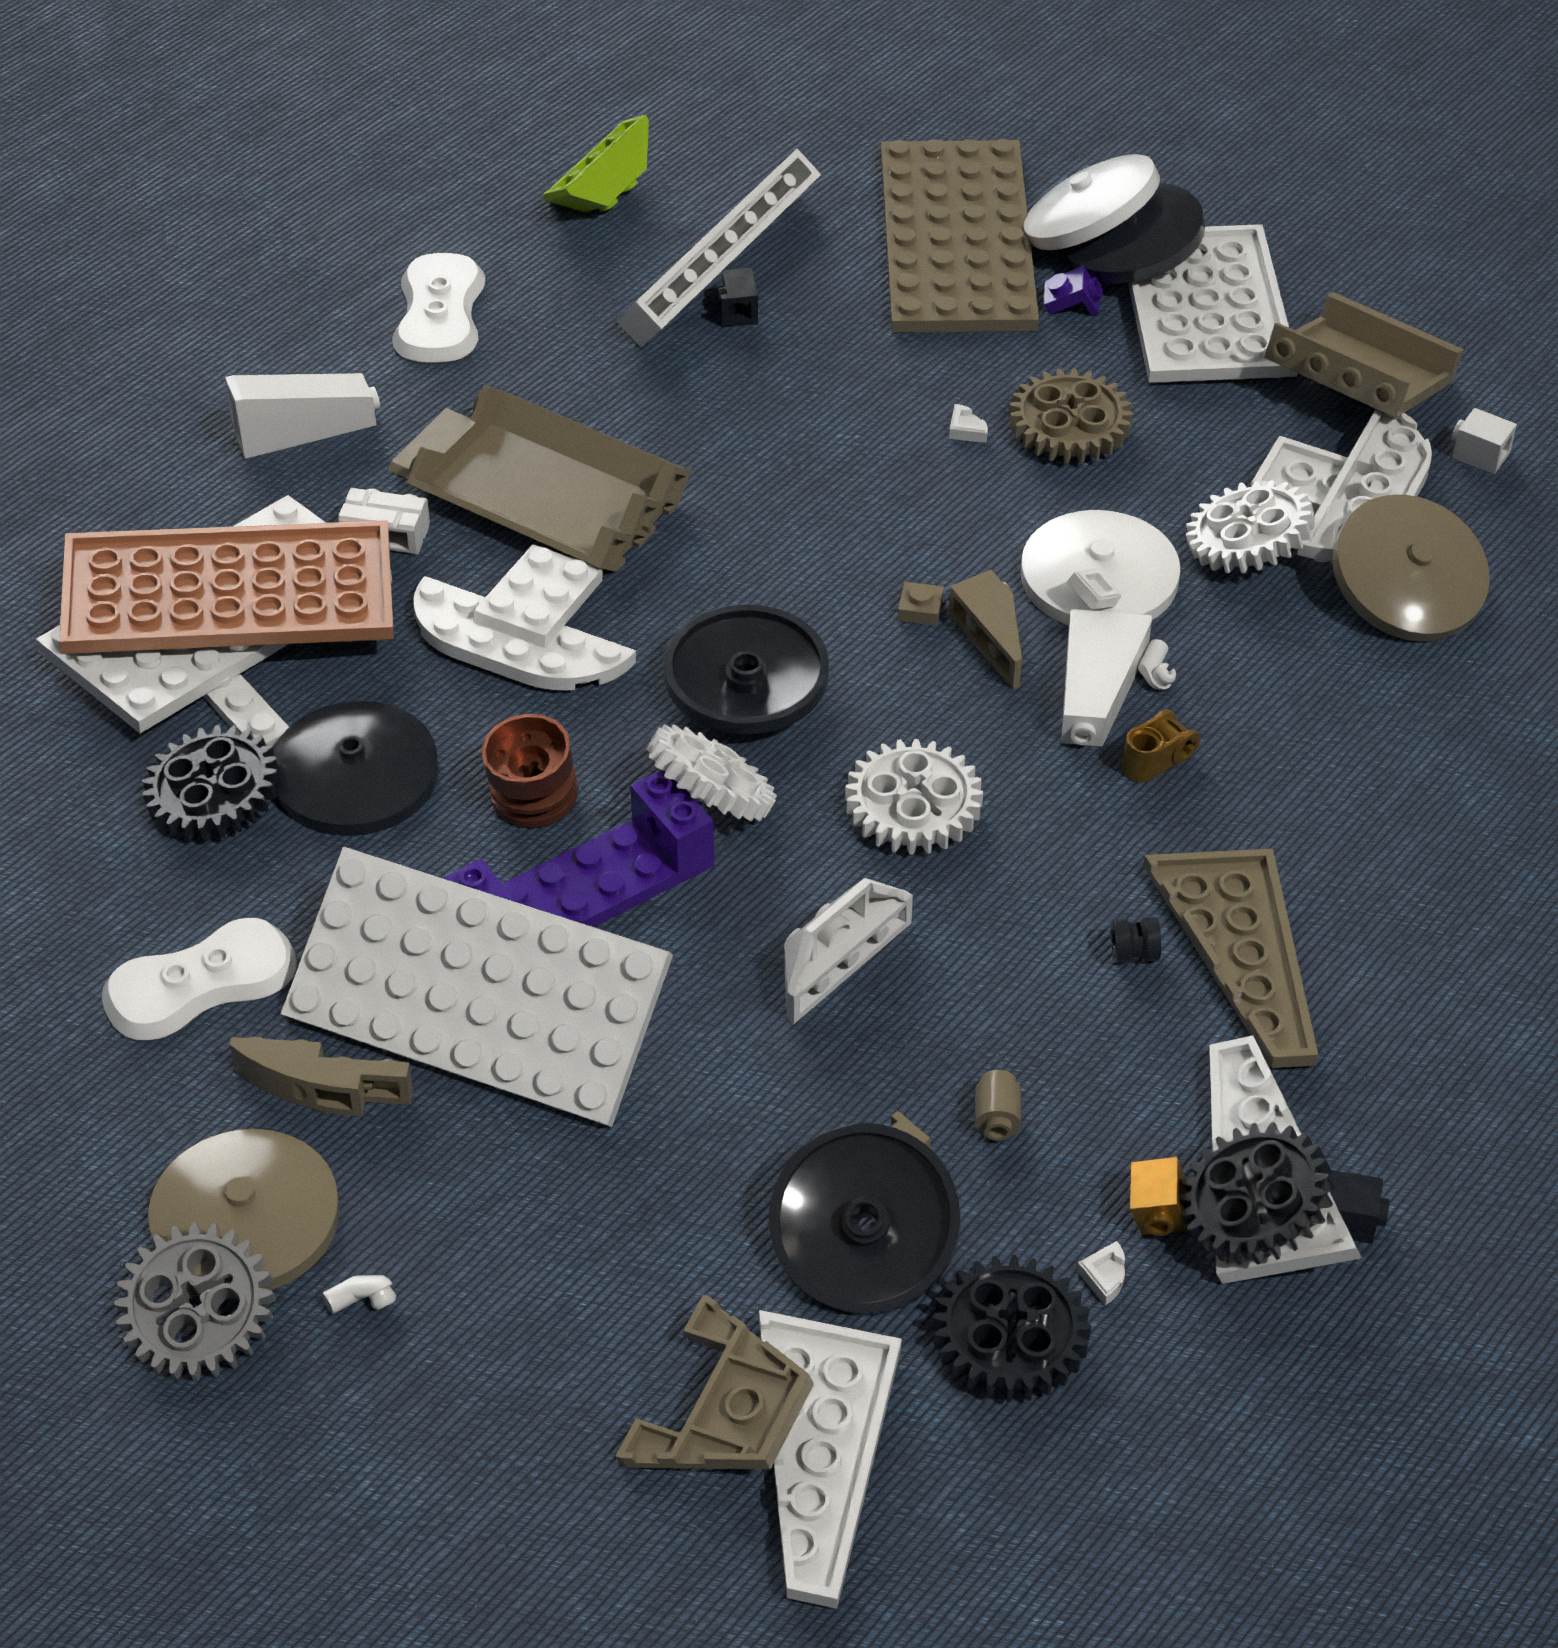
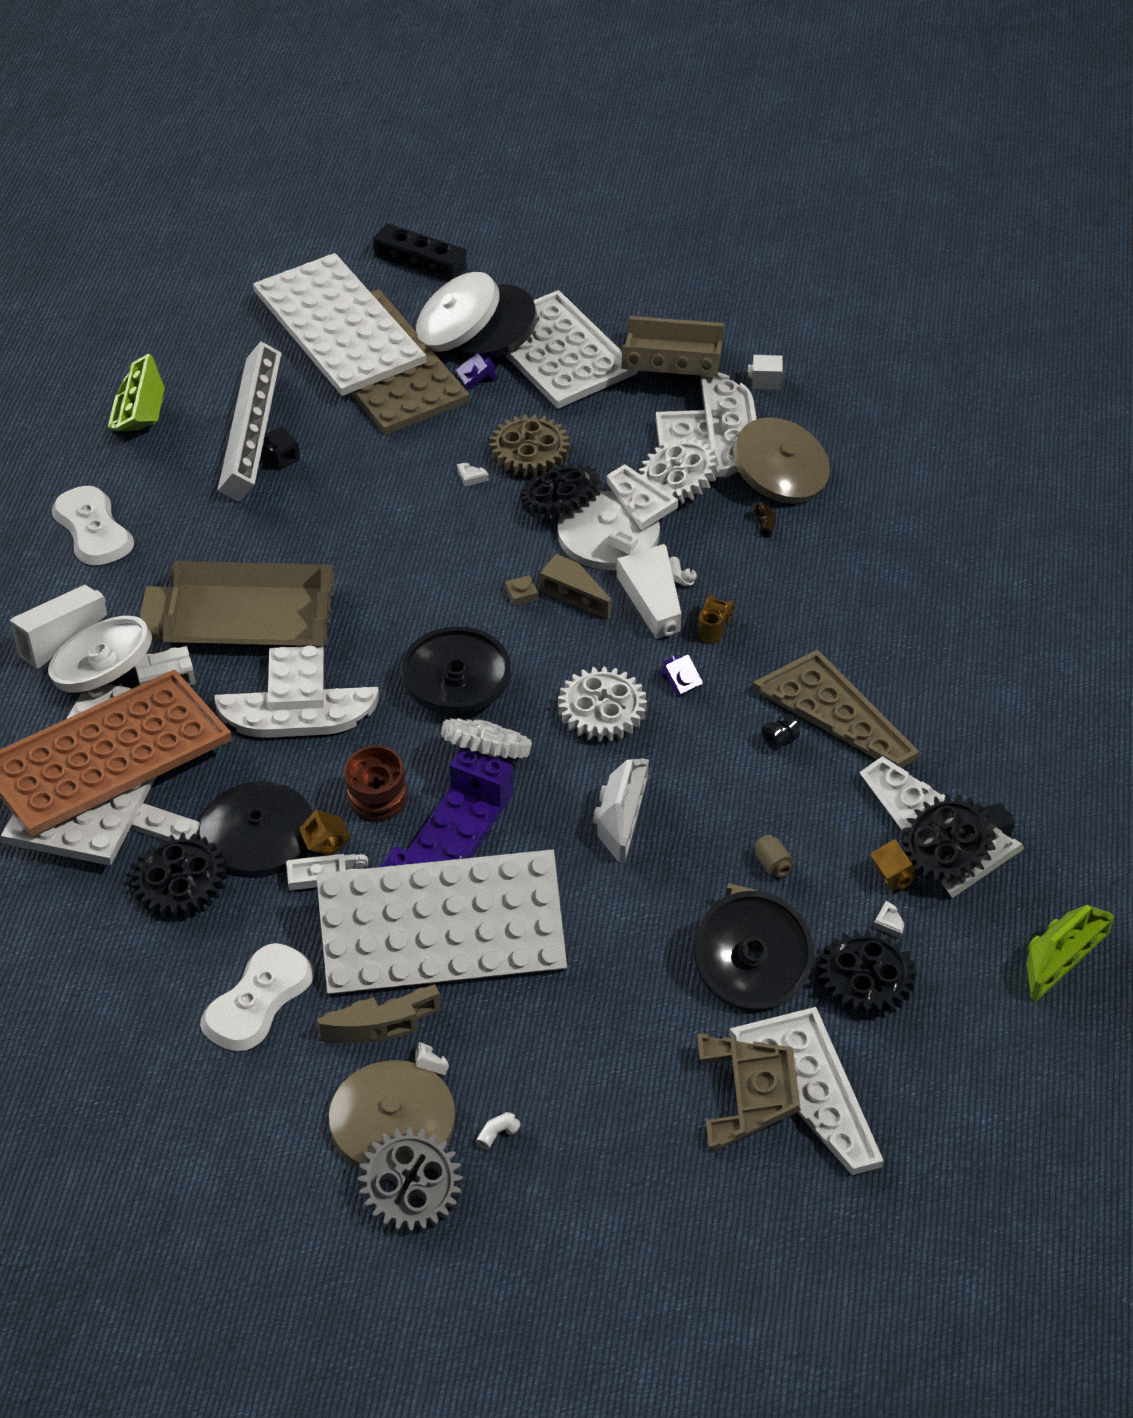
camera: 30 degrees left, 0 degrees up
(316, 466) = (100, 654): none -> white dish
(341, 1160) = (427, 1060): none -> white tile
(396, 850) = (303, 871): none -> white hinge
(422, 807) = (324, 833): none -> pearl gold brick
(928, 166) = (339, 324): none -> white plate
(1053, 802) = (681, 674): none -> bracket
(1064, 491) = (561, 491): none -> black gear
(1107, 110) = (419, 252): none -> black brick
(1168, 540) = (640, 496): none -> white wing
(1334, 1431) = (1064, 946): none -> lime wedge
(1337, 639) = (766, 518): none -> dark brown arm

